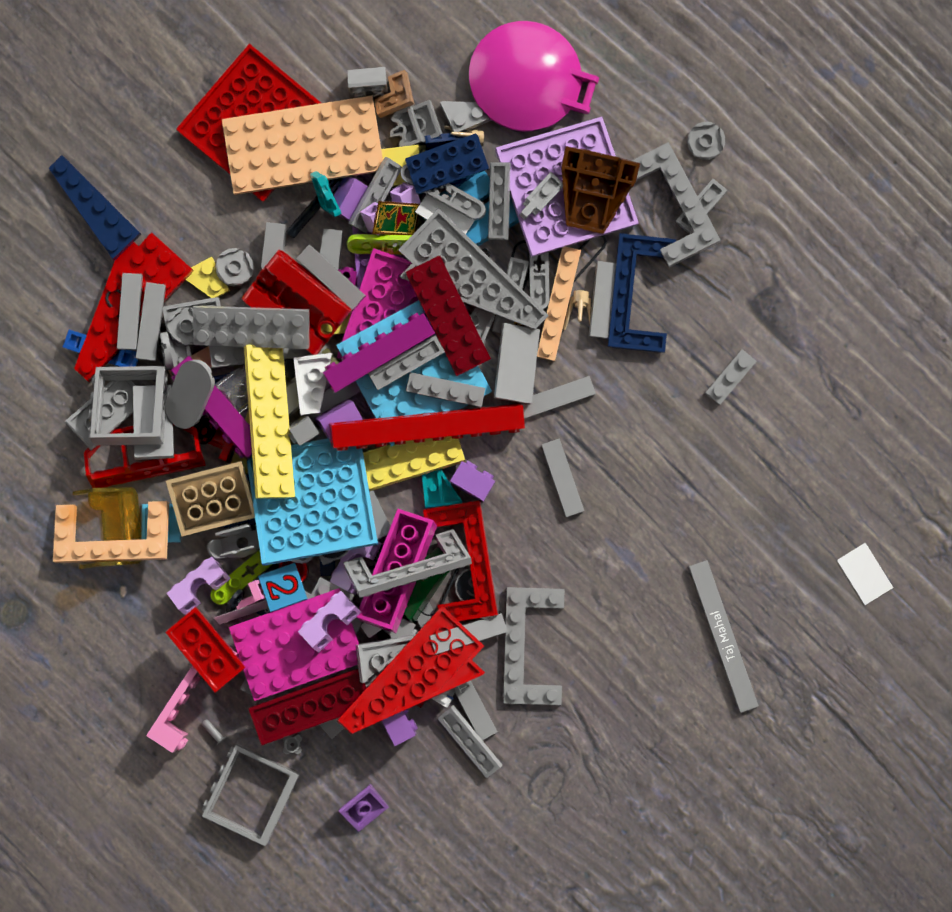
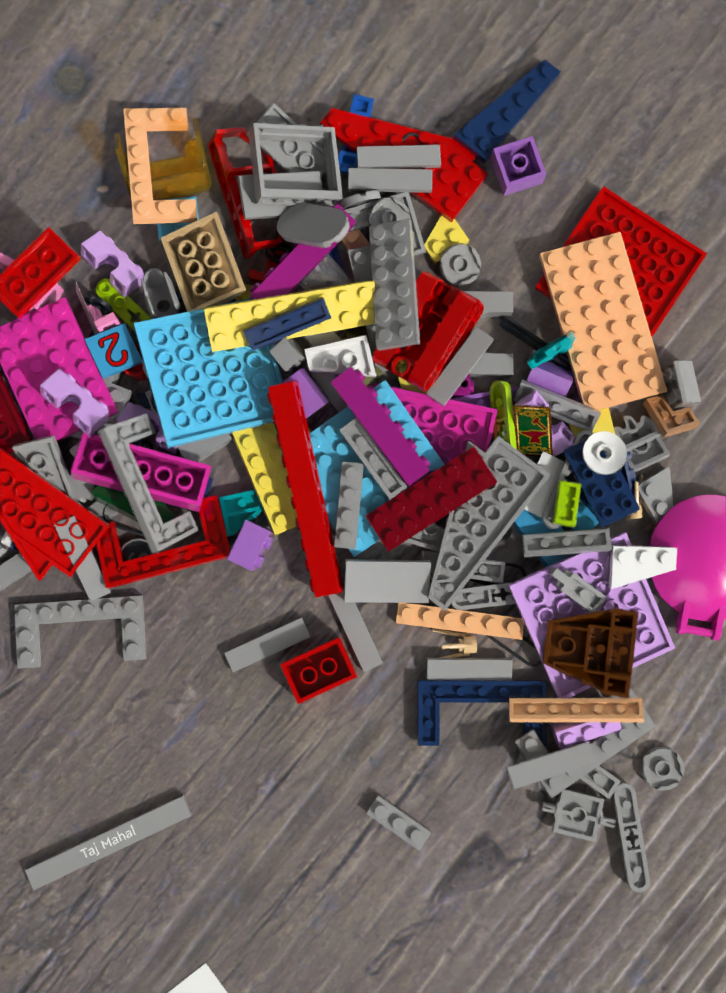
camera: 85 degrees right, 0 degrees up
(149, 204) = (518, 166): none -> medium lavender brick
(277, 425) = (287, 324): none -> dark blue tile
(419, 150) = (611, 445): none -> white dish
(465, 196) = (566, 503): none -> lime plate
(523, 139) = (638, 563): none -> white wing
(589, 432) = (318, 670): none -> red brick
(646, 210) = (576, 710): none -> light nougat plate
(659, 190) = (573, 733): none -> lavender arch
(691, 237) = (550, 765): none -> light grey tile
(738, 219) = (578, 814): none -> light grey plate
(781, 174) = (633, 857): none -> light grey piece

